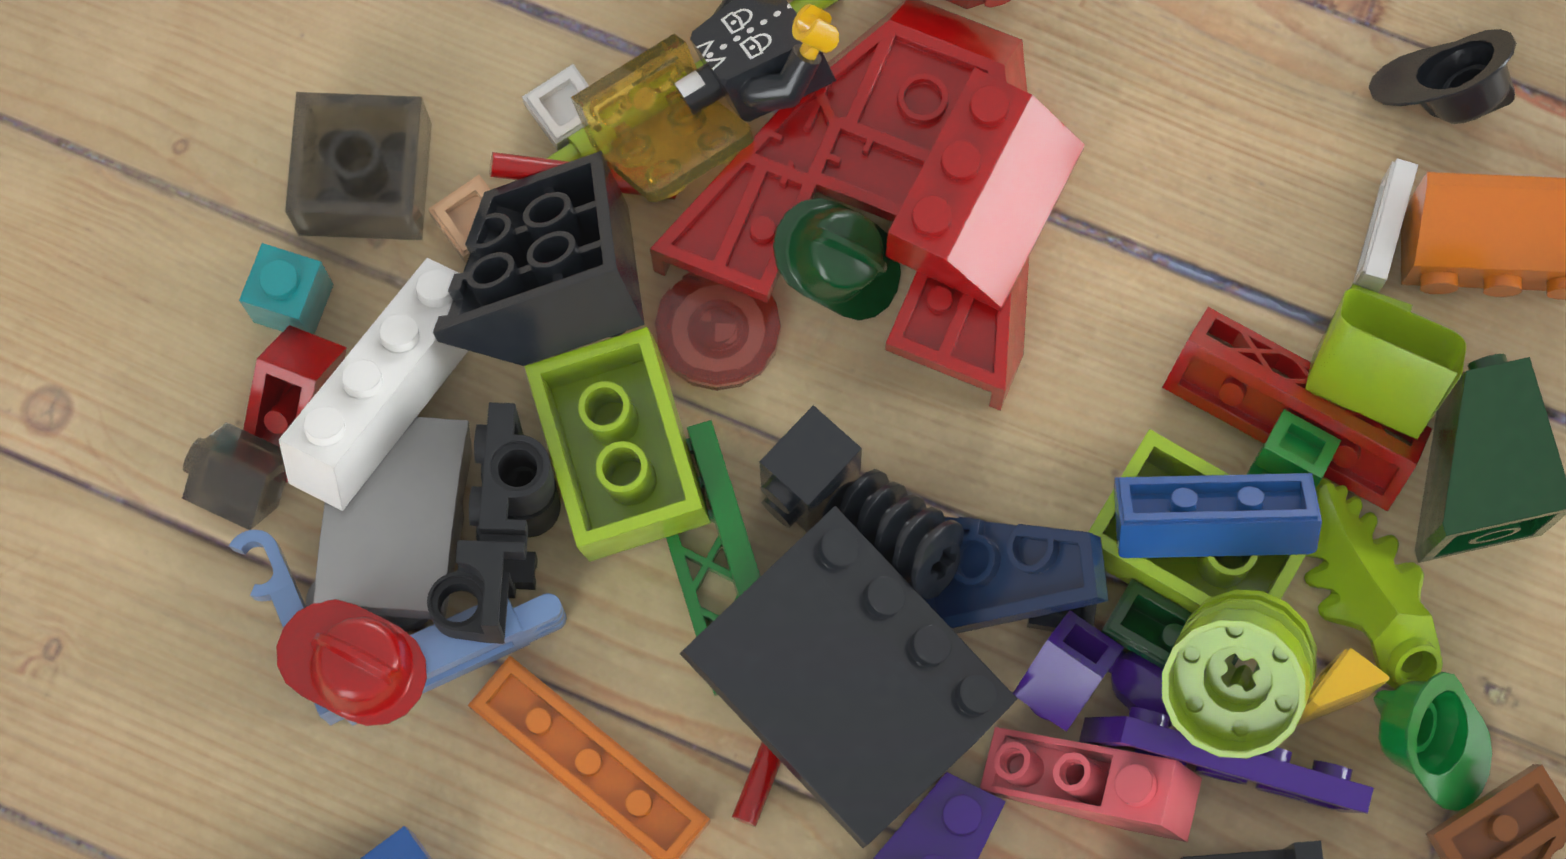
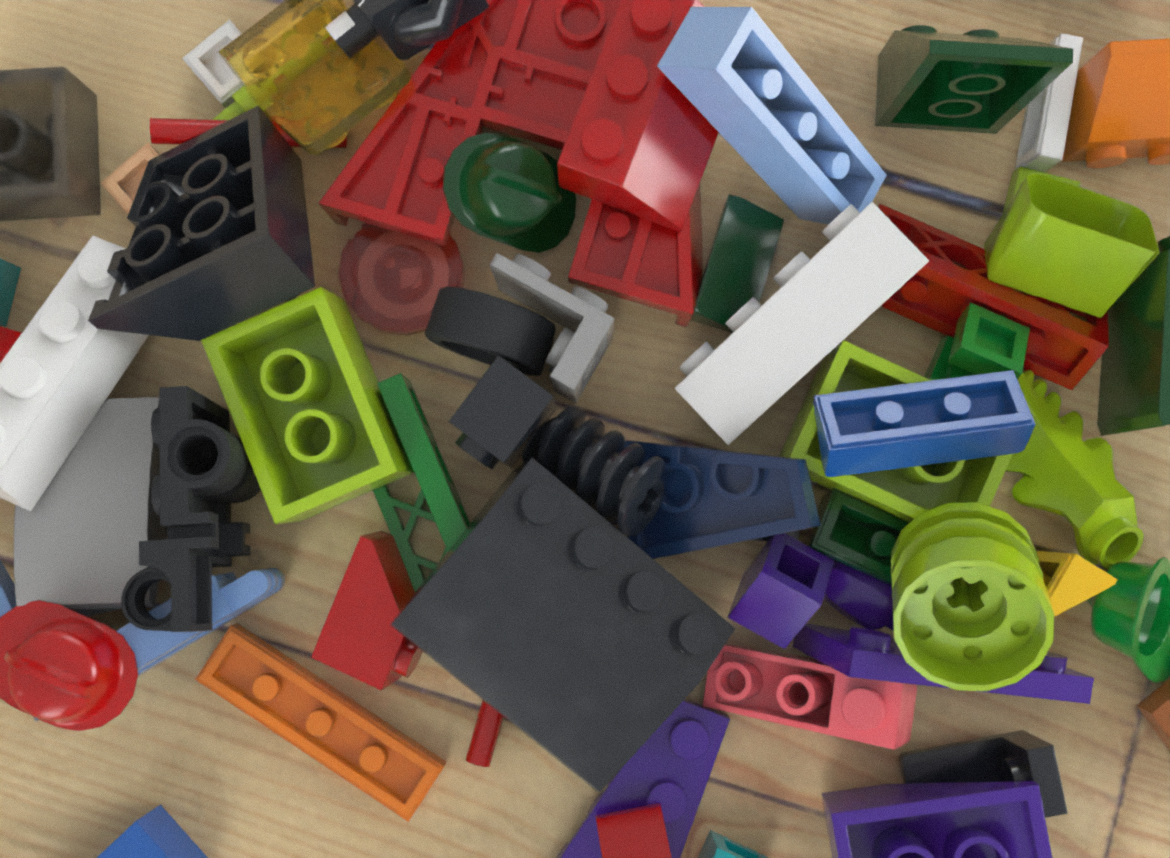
camera: 10 degrees left, 10 degrees up
(646, 660) = (358, 626): none -> red slope
(792, 378) = (489, 327): none -> black tyre
(891, 380) = (582, 313): none -> light grey bracket
(1056, 355) = (736, 261): none -> dark green slope
(1100, 214) = (770, 112): none -> light blue brick
(1108, 411) = (801, 322): none -> white brick
(1289, 193) = (960, 79): none -> dark green slope

